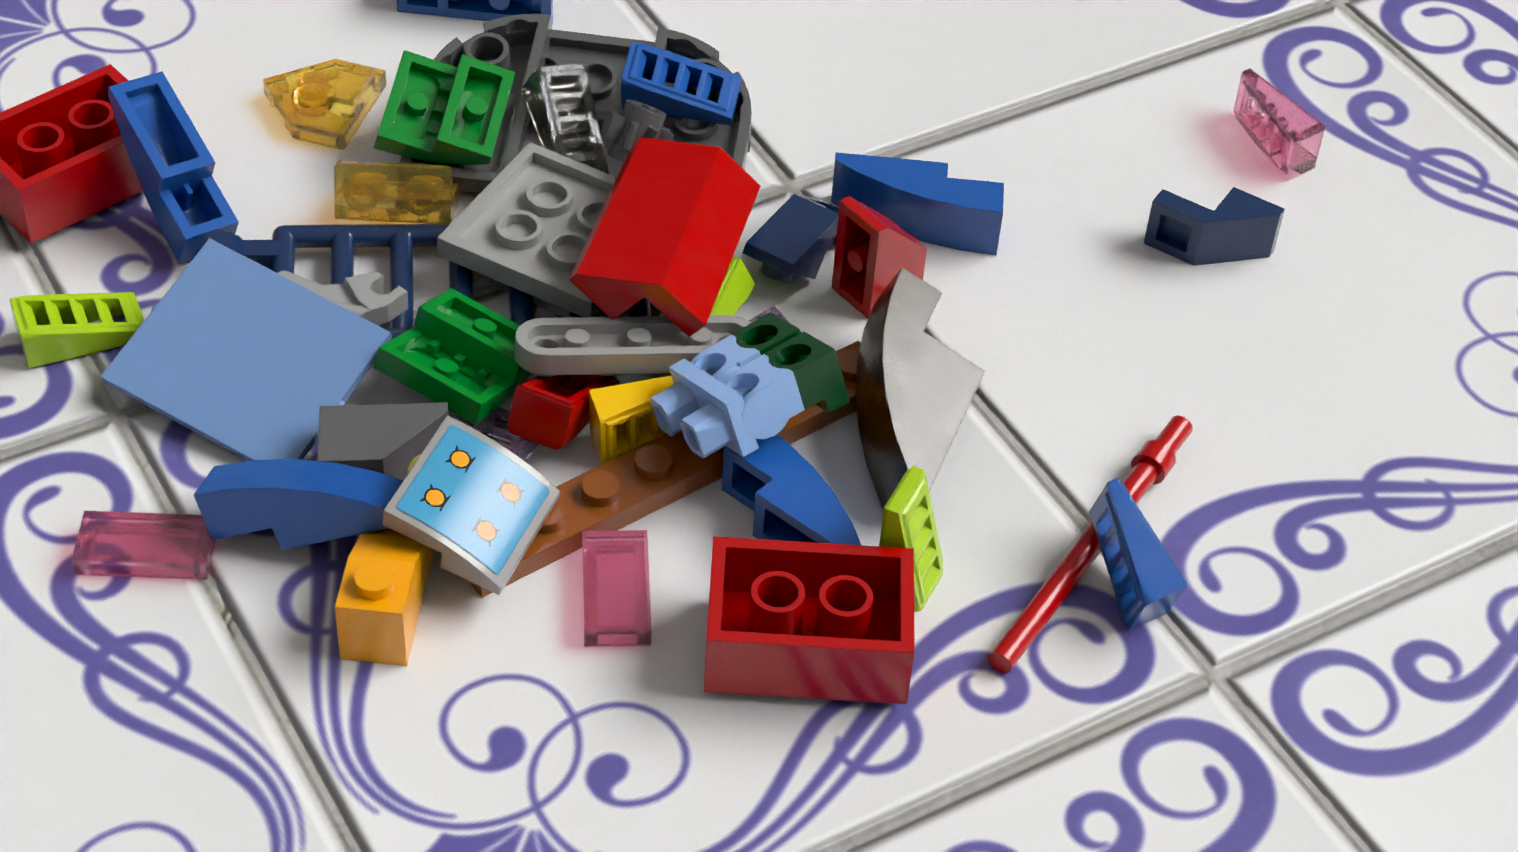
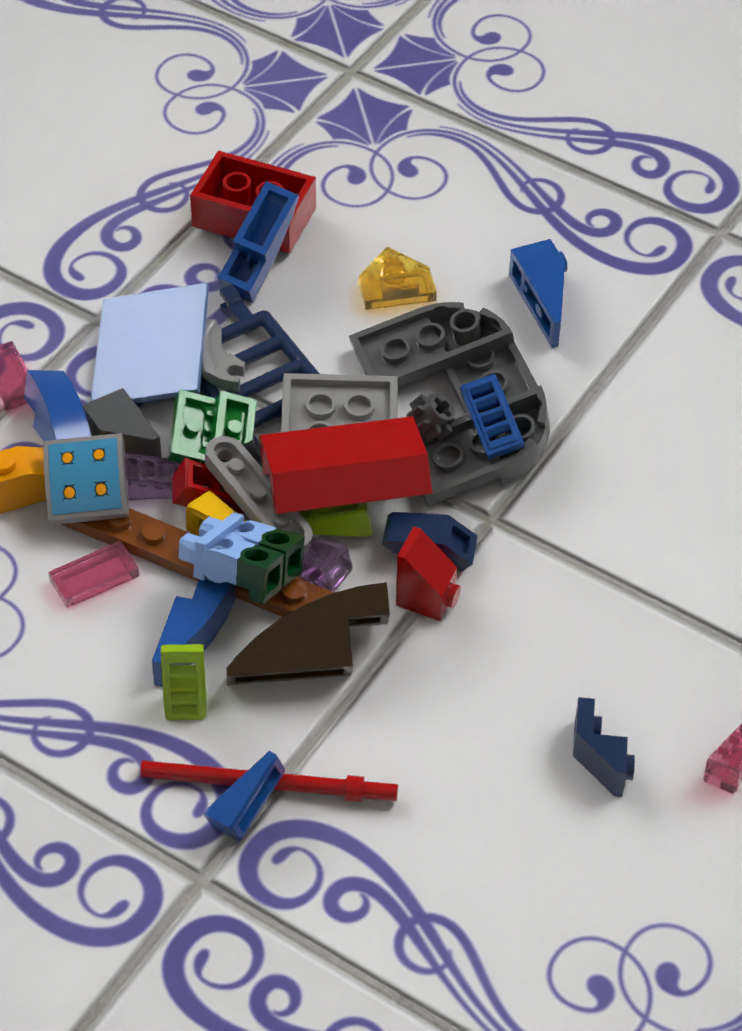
camera: 65 degrees right, 5 degrees up
(59, 326) = (129, 254): lime slope -> none
(395, 192) = (323, 343): clear yellow bracket -> none
(445, 110) = (397, 326): green slope -> none
(565, 89) = (432, 368): clear smoke slope -> none
(810, 620) = (100, 660): red brick -> none
(923, 200) = (509, 588): blue slope -> none

